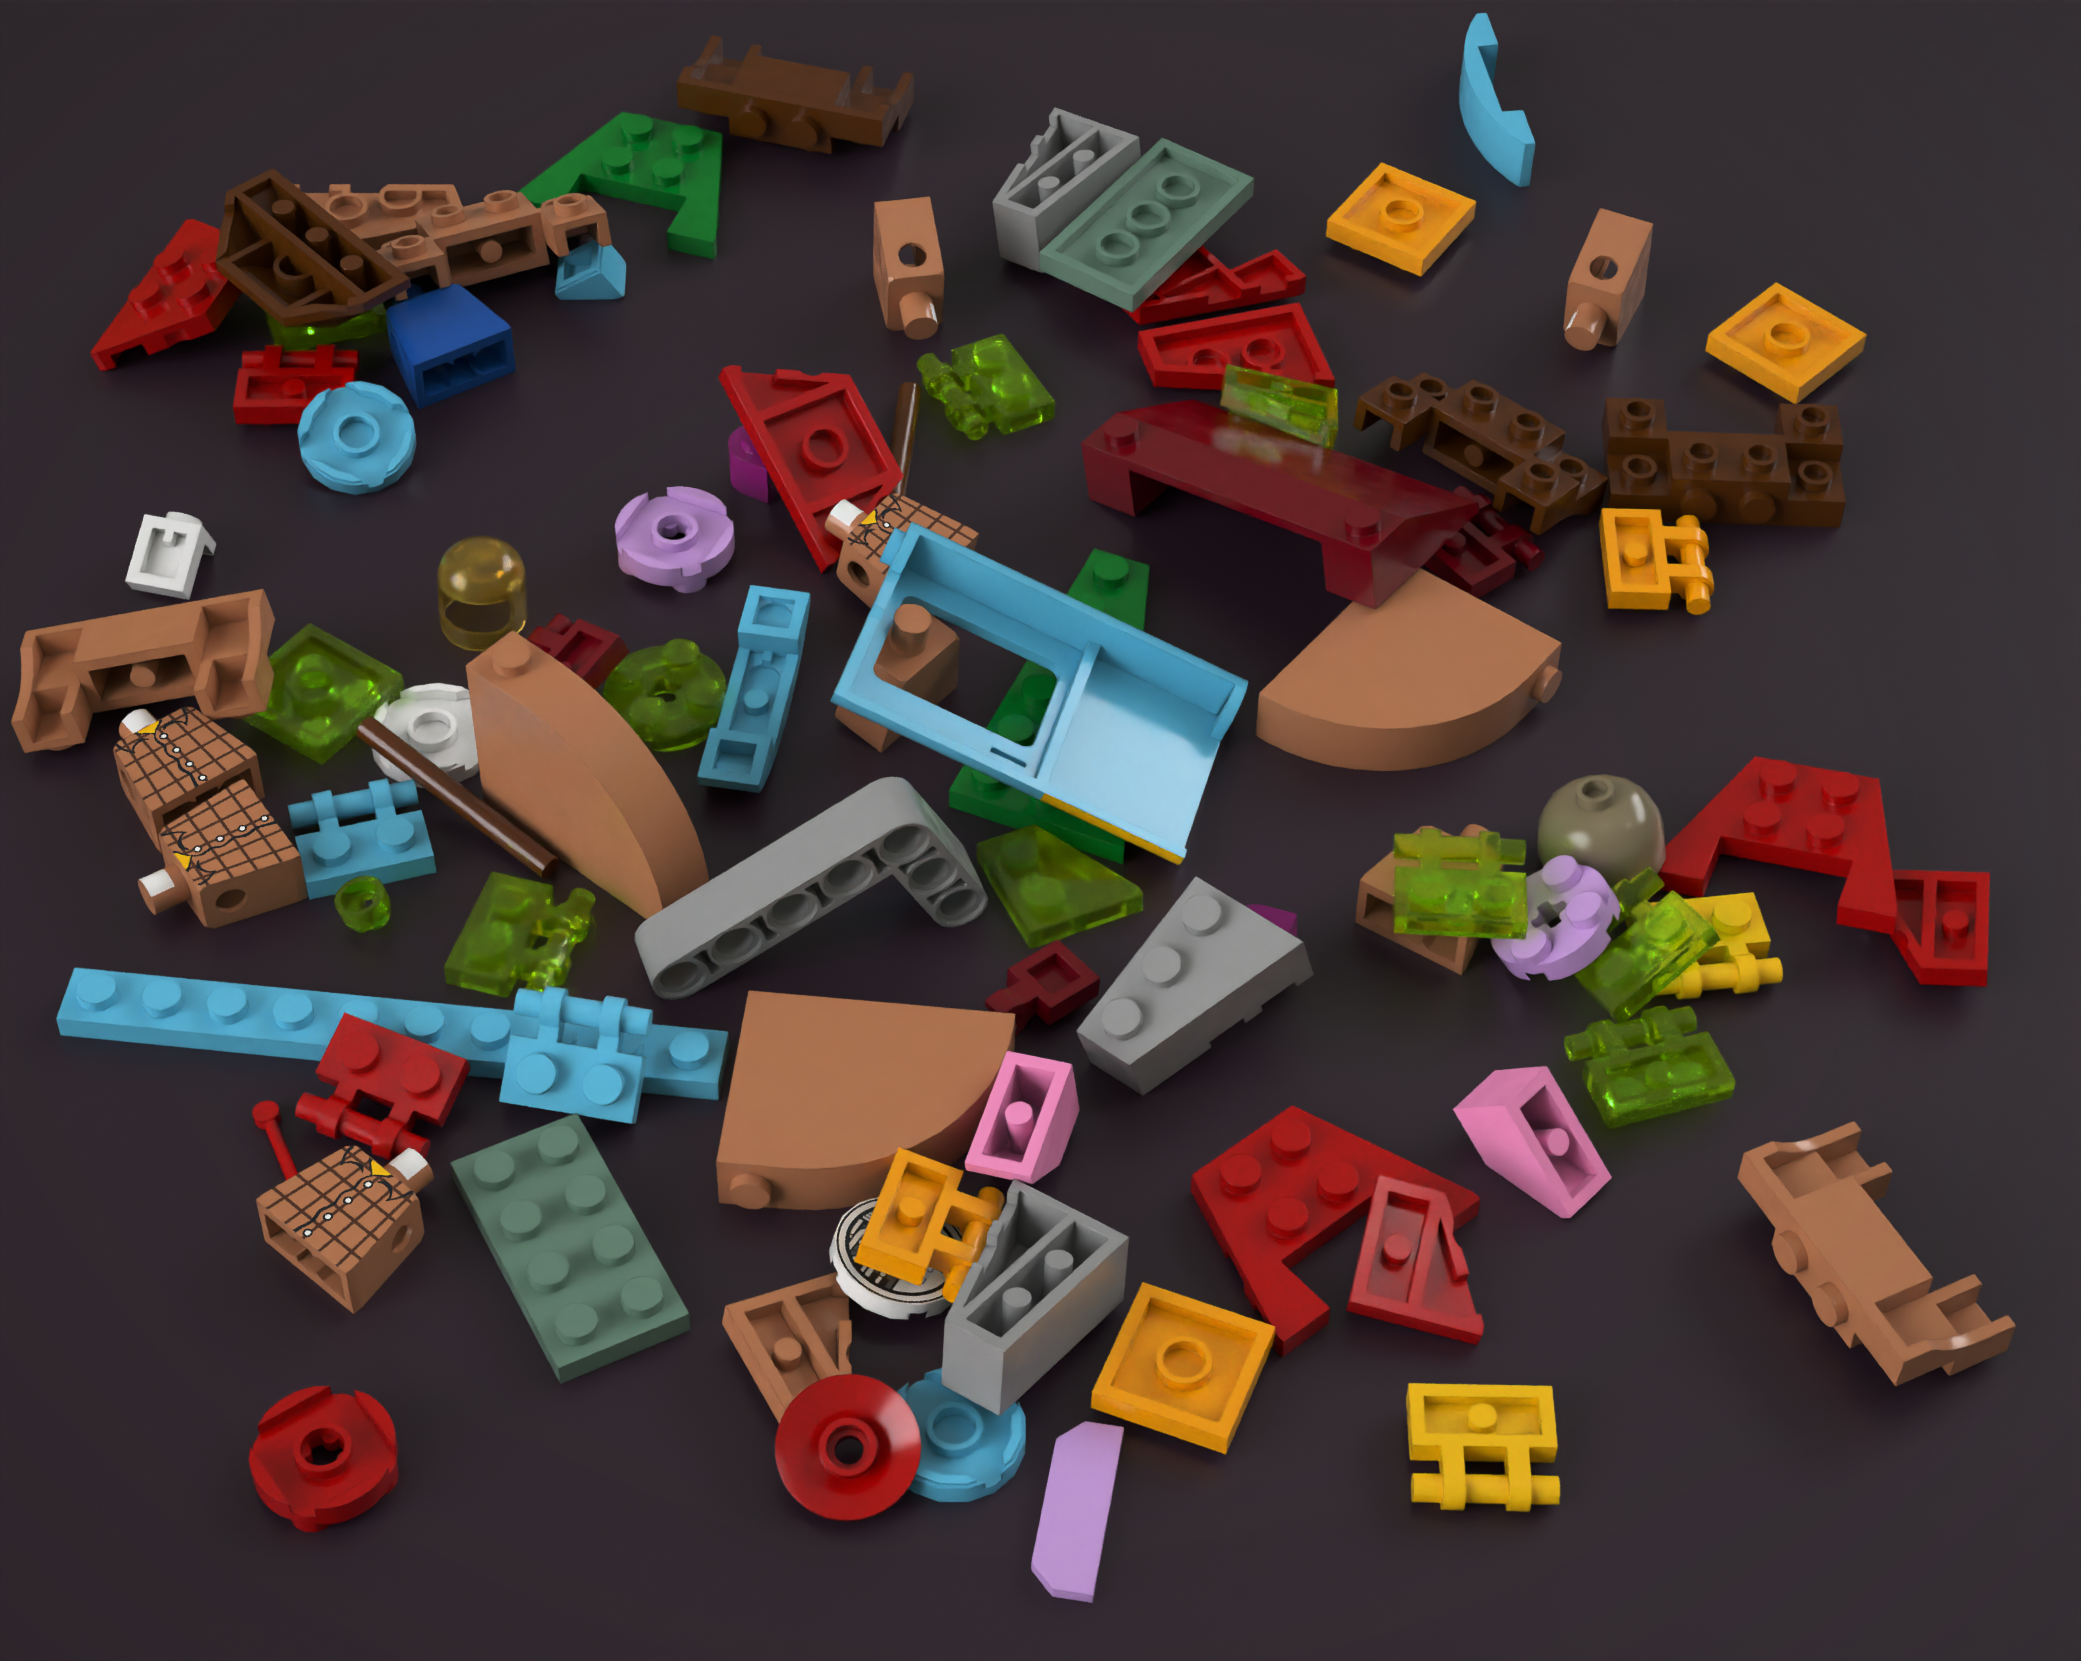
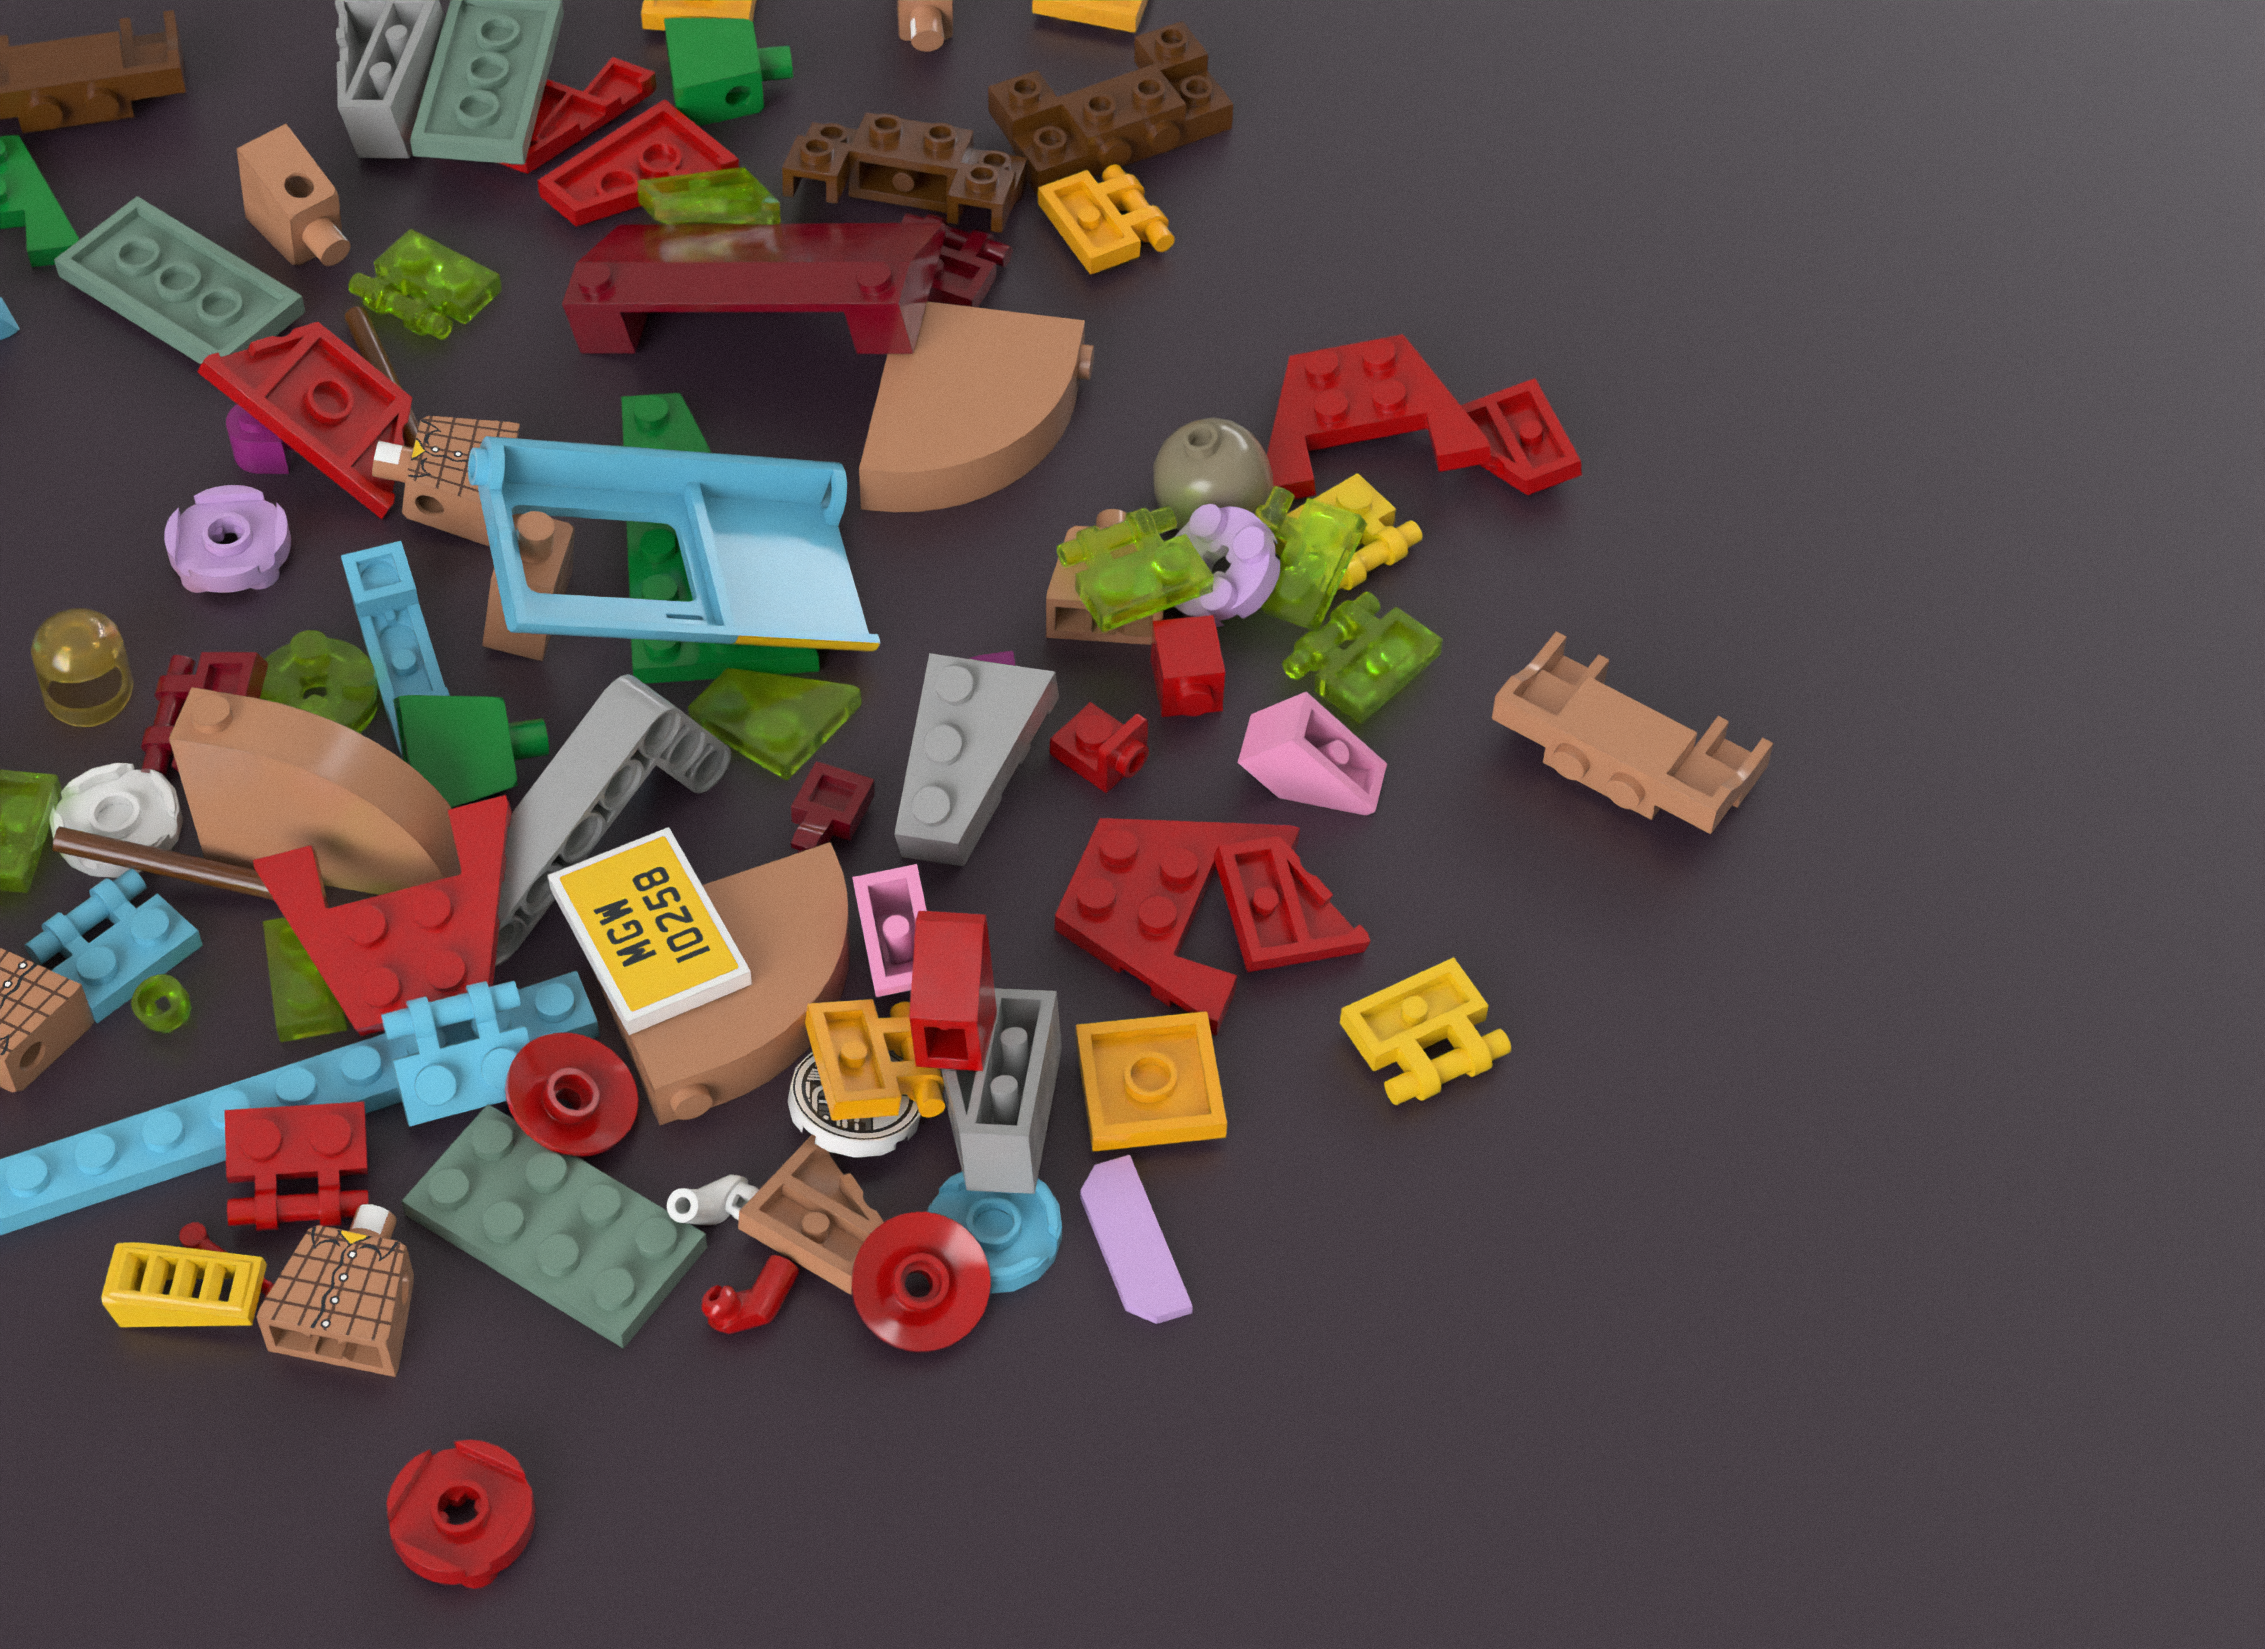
camera: 30 degrees left, 5 degrees up
(194, 1120) = (139, 1275): none -> yellow slope
(592, 935) = (407, 940): none -> red wing
(665, 1114) = (585, 1076): none -> red dish
(692, 1400) = (754, 1307): none -> red arm
(707, 1288) = (711, 1202): none -> white arm
(745, 790) = (465, 743): none -> green torso
(773, 303) = (177, 283): none -> sand green plate
(798, 1019) = (649, 930): none -> tile
(1011, 1187) = (952, 991): none -> red slope
(1338, 1041) = (1102, 746): none -> red bracket
(1368, 294) = (720, 68): none -> green torso
(1465, 1001) = (1187, 666): none -> red brick

